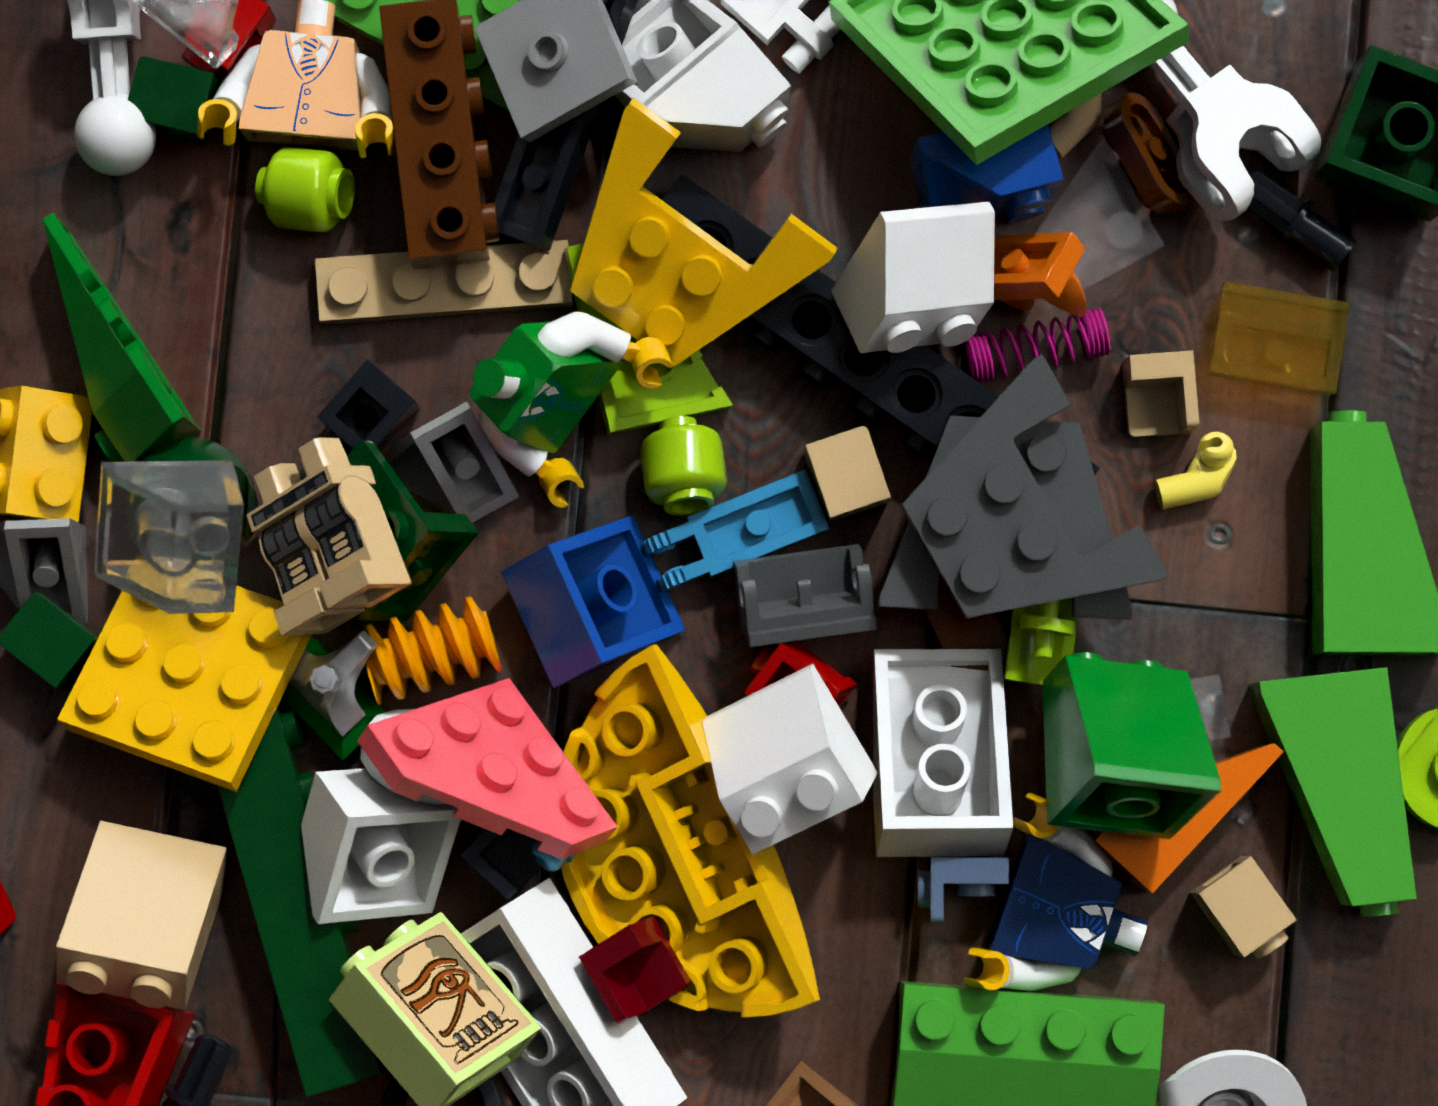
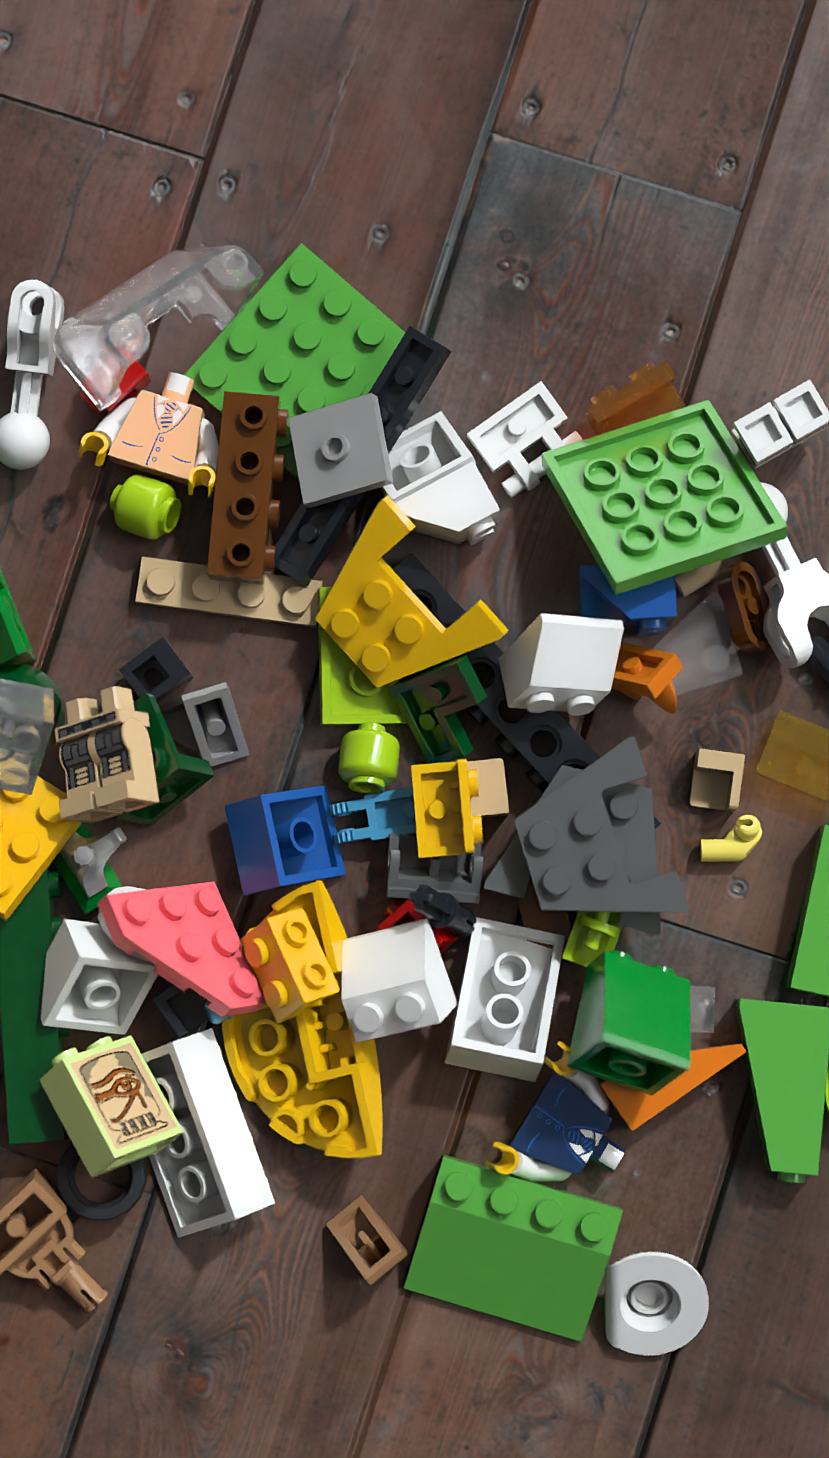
camera: 20 degrees right, 0 degrees up
(171, 97) = (66, 422): dark green panel -> none
(431, 649) = (164, 849): light orange piece -> none
(545, 385) = (284, 681): torso -> none
(635, 970) = (257, 1105): dark red panel -> none
(636, 767) = (289, 963): none -> yellow bracket
(751, 374) = (430, 708): none -> dark green plate
(804, 511) = (444, 809): none -> yellow bracket
(831, 649) = (443, 911): none -> black axle
(971, 873) = (509, 1092): sand blue bracket -> none
(1091, 326) = (677, 724): dark pink piece -> none
(1245, 908) = (696, 1156): tan brick -> none

